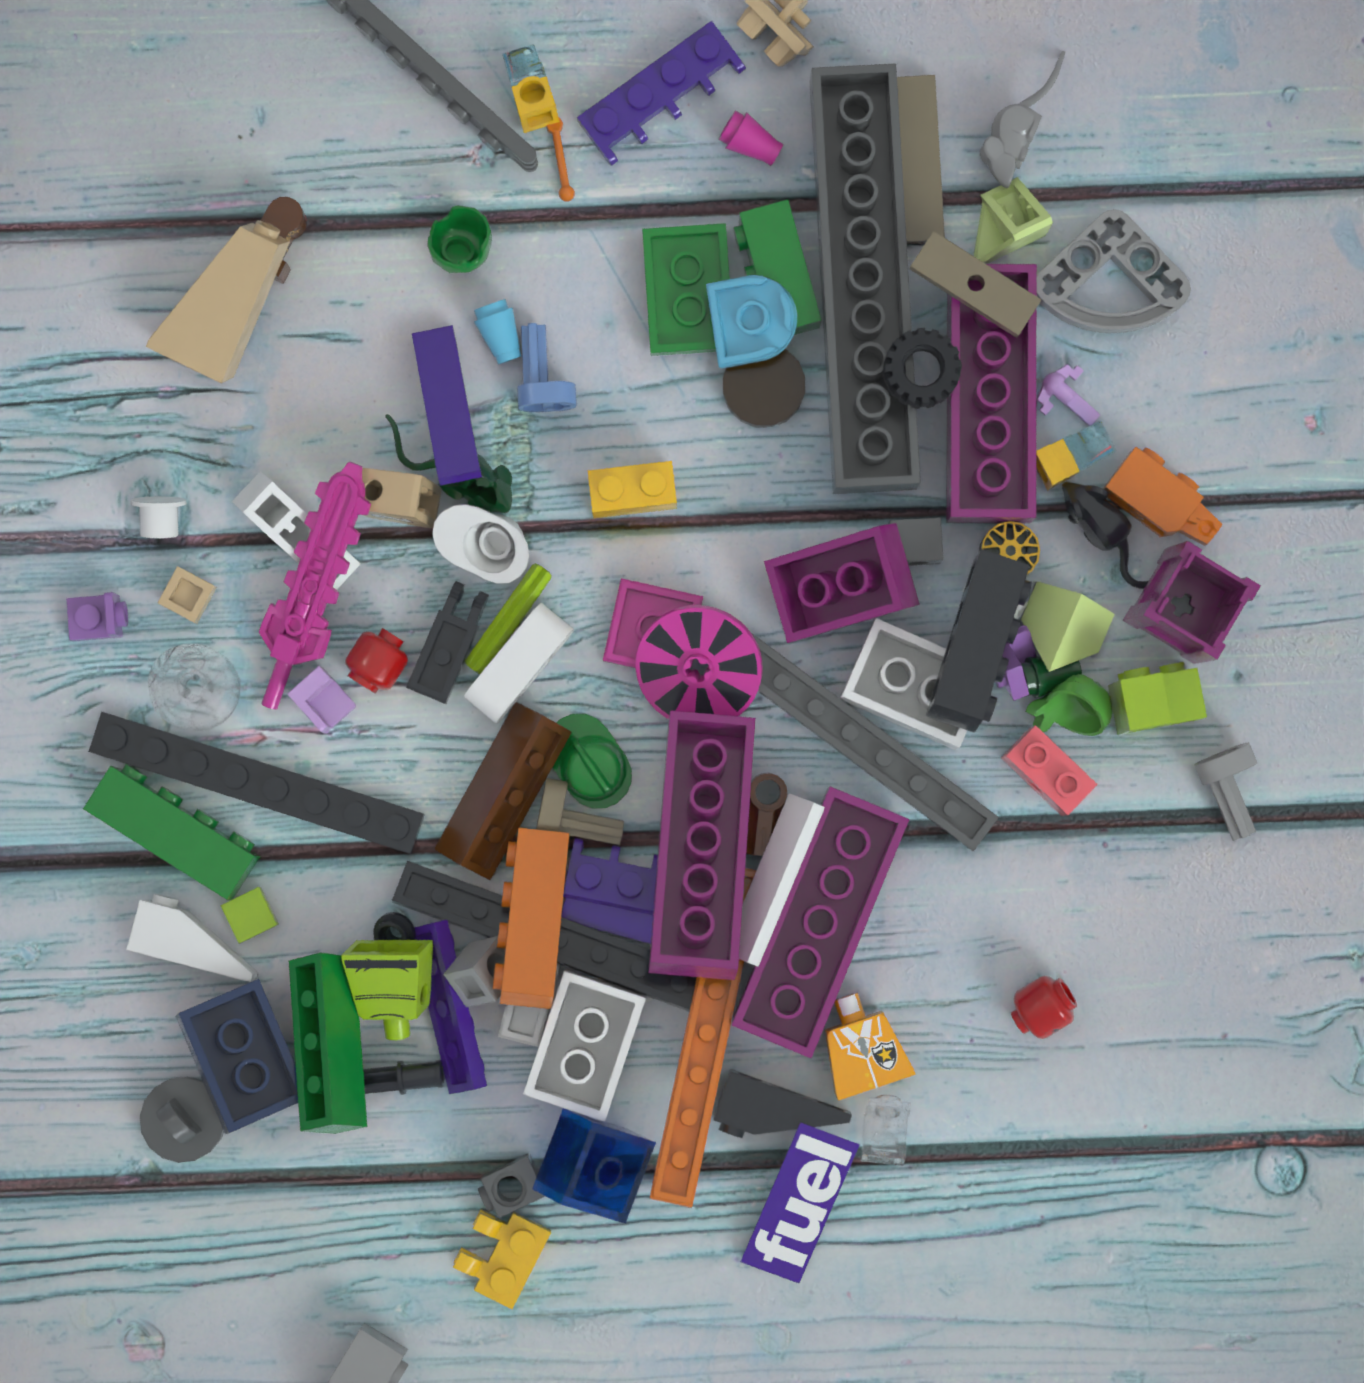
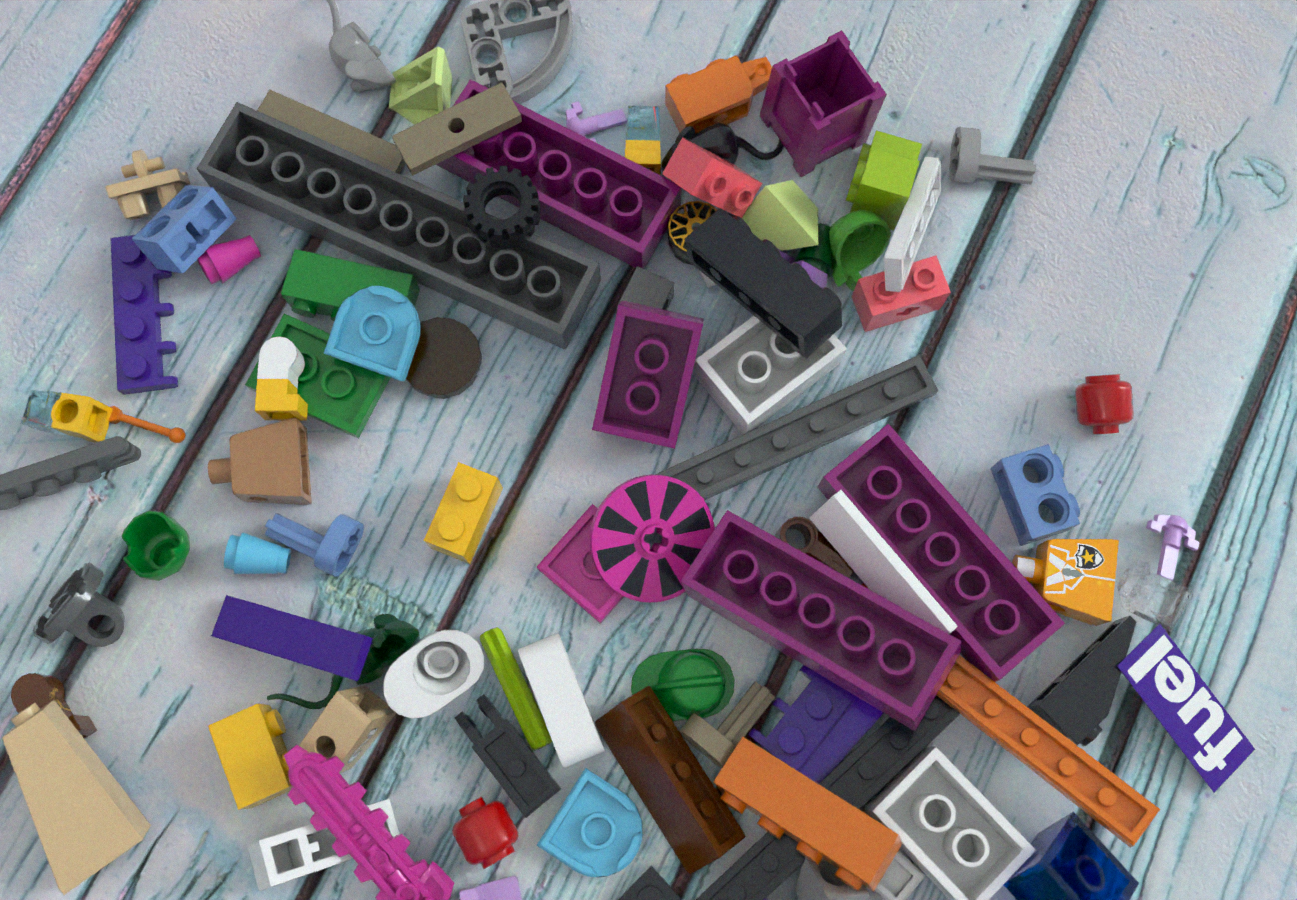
camera: 60 degrees left, 10 degrees down
(335, 431) = (253, 754): none -> yellow brick
(372, 203) = (74, 607): none -> dark grey tile
(429, 750) = (594, 828): none -> medium azure tile
(582, 292) = (267, 464): none -> medium nougat torso
(668, 254) = (278, 381): none -> leg
(753, 88) = (184, 228): none -> medium blue brick
(915, 976) = (1024, 497): none -> medium blue brick
(961, 1124) = (1174, 529): none -> lavender piece
(1060, 541) = (711, 178): none -> coral brick
(1116, 747) = (912, 225): none -> white tile

